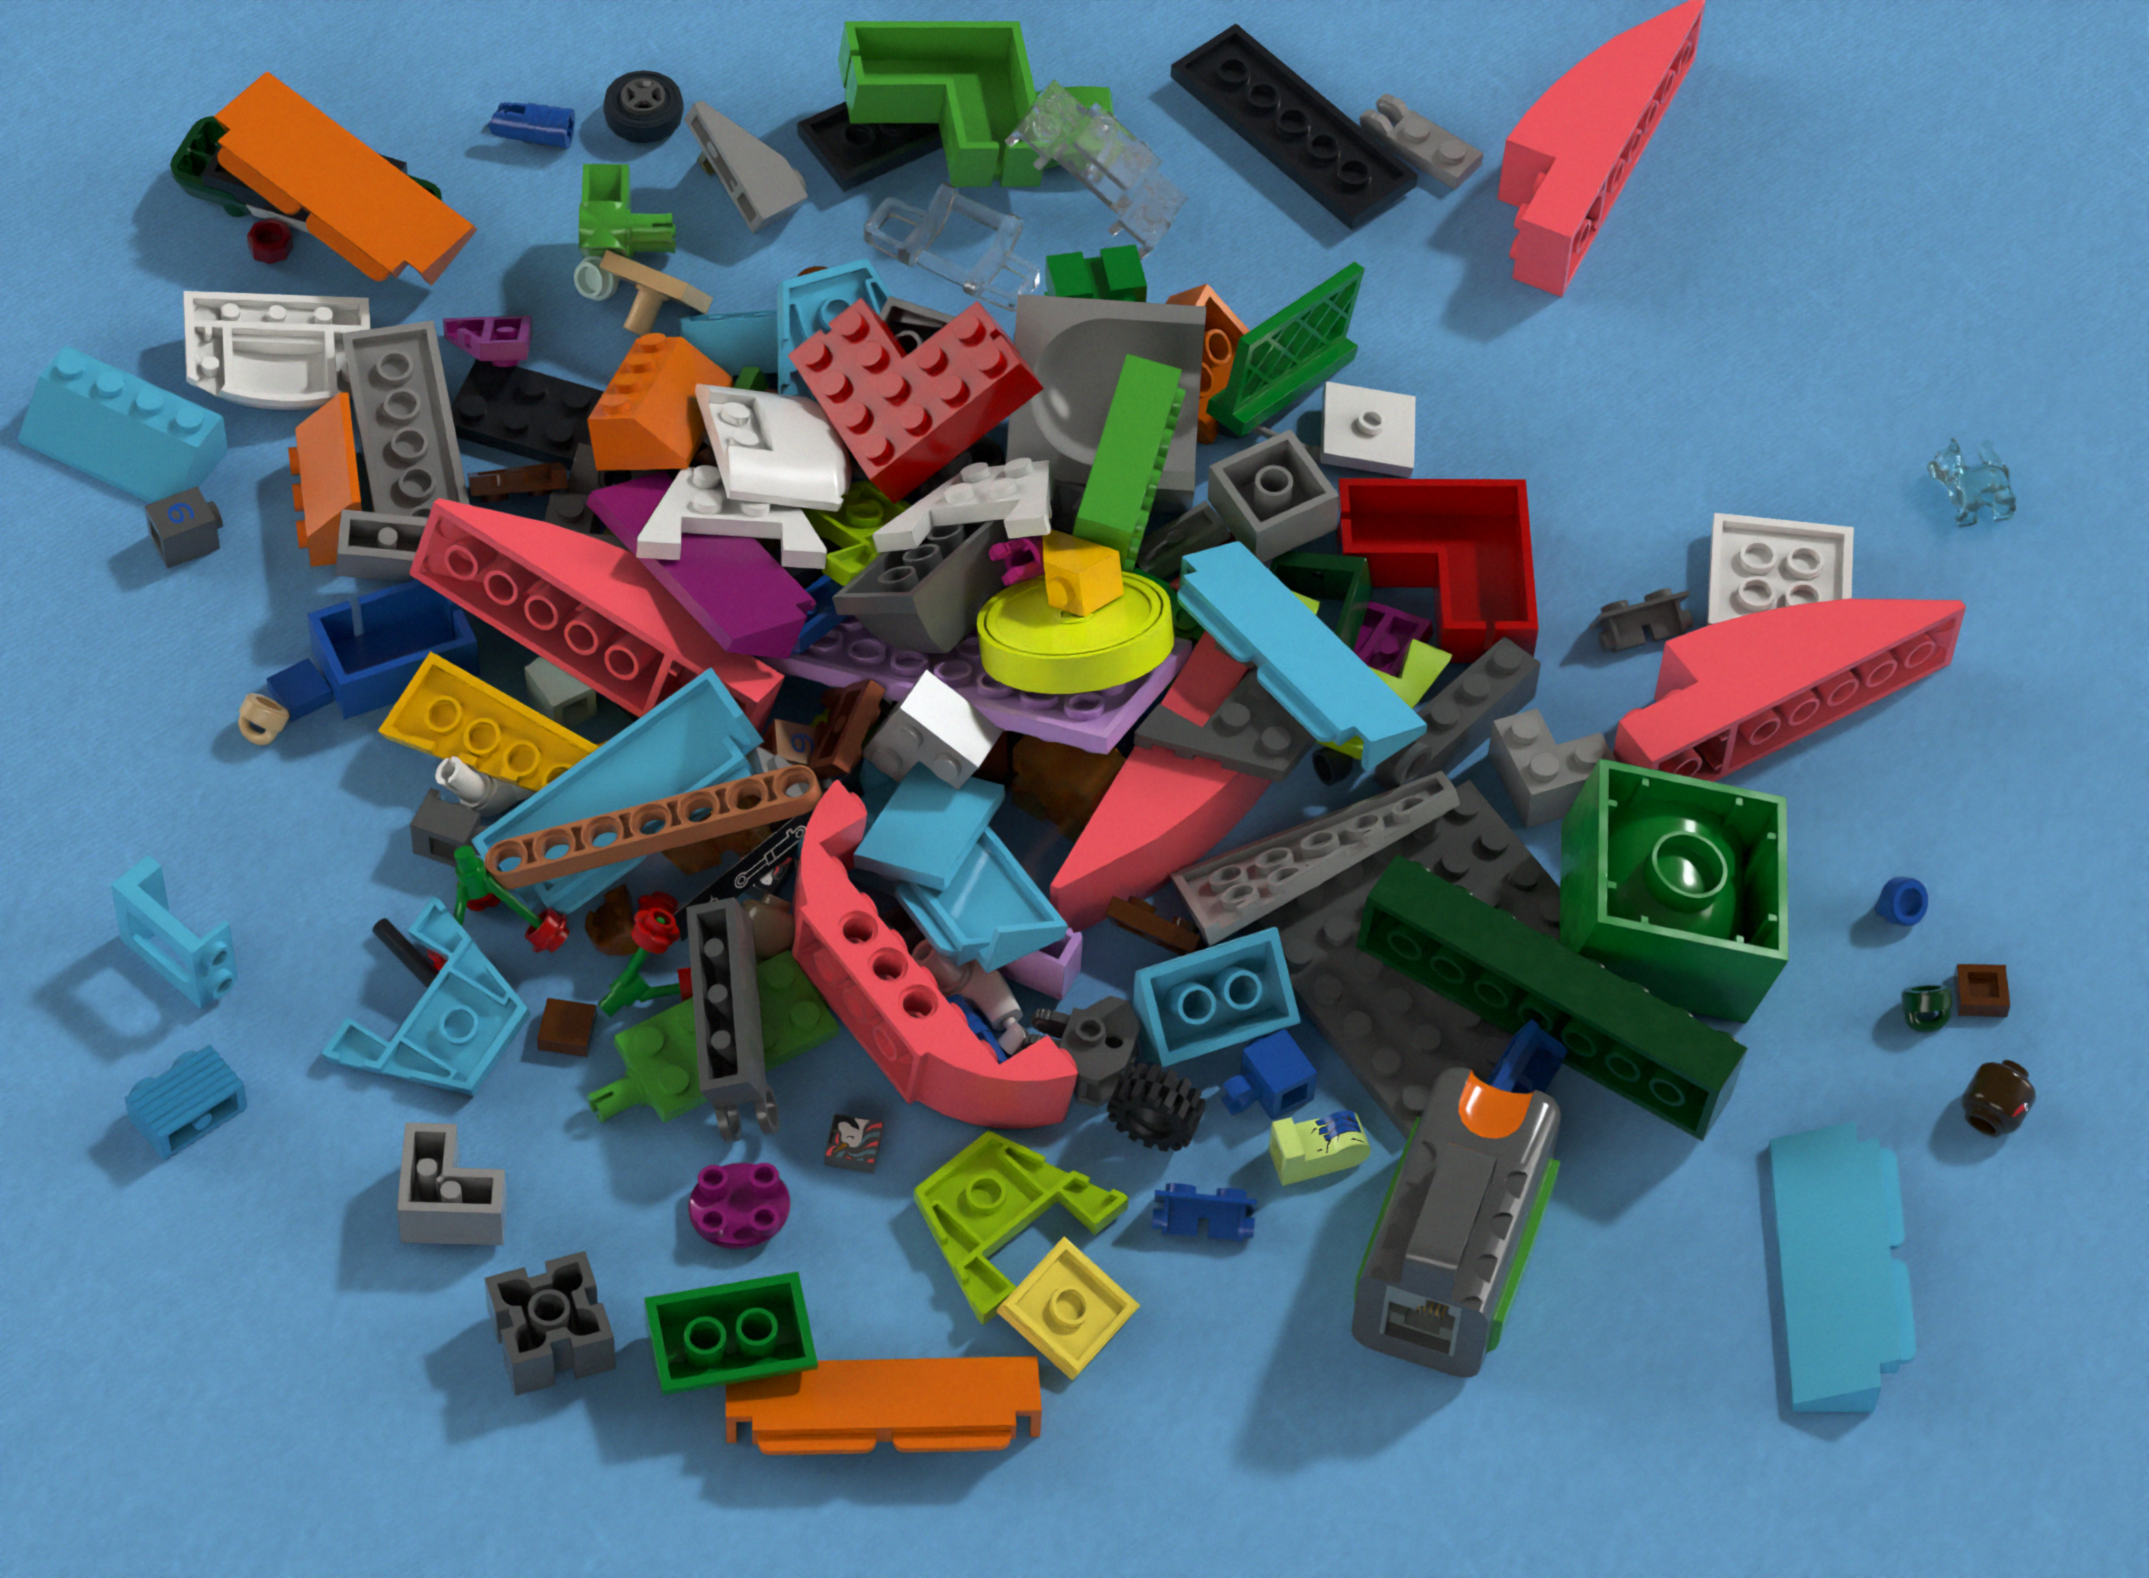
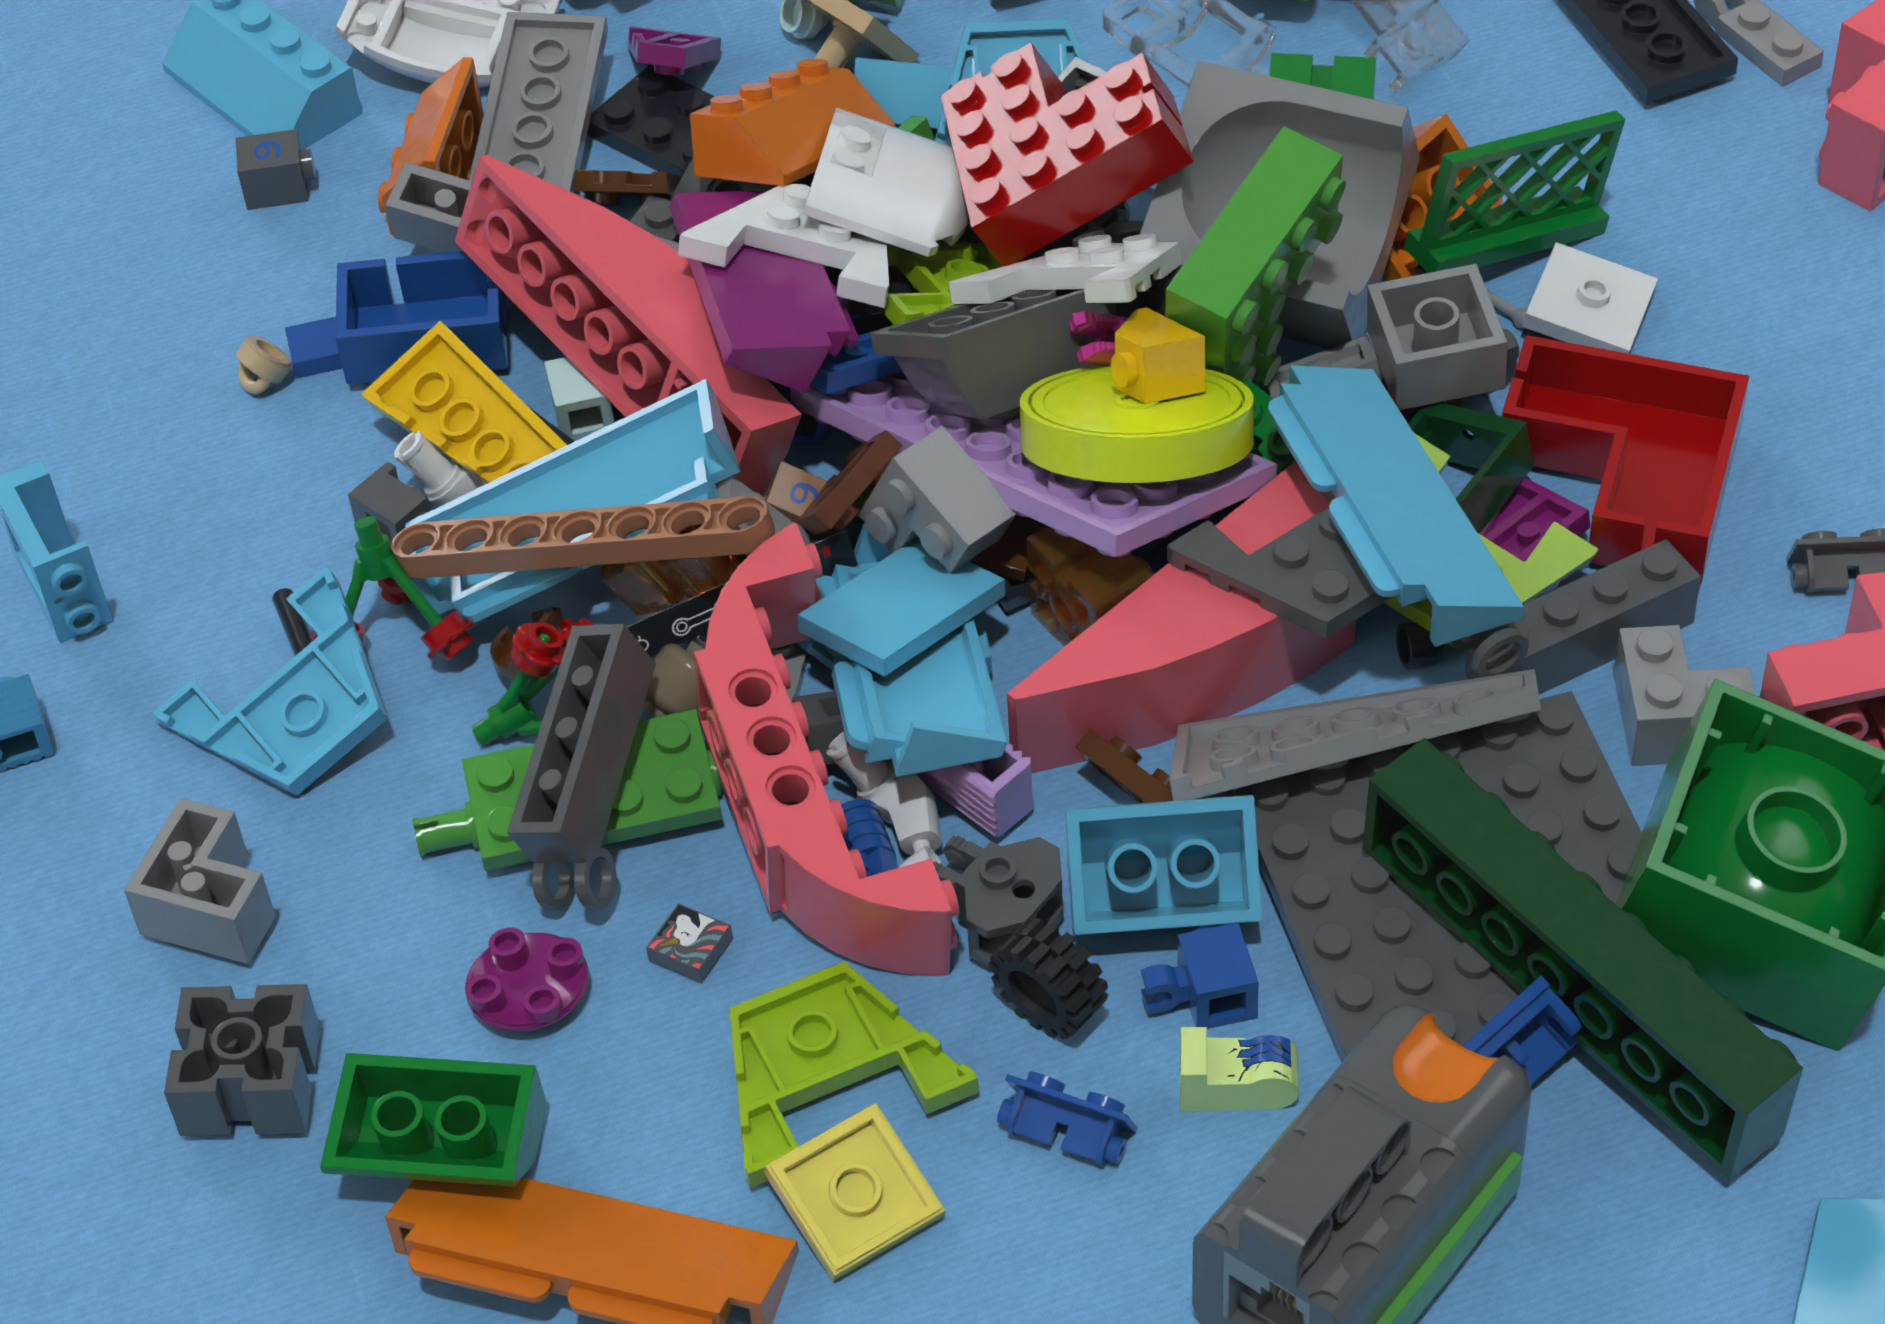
camera: 25 degrees right, 5 degrees down
(567, 1027) = (429, 744): reddish brown tile -> none

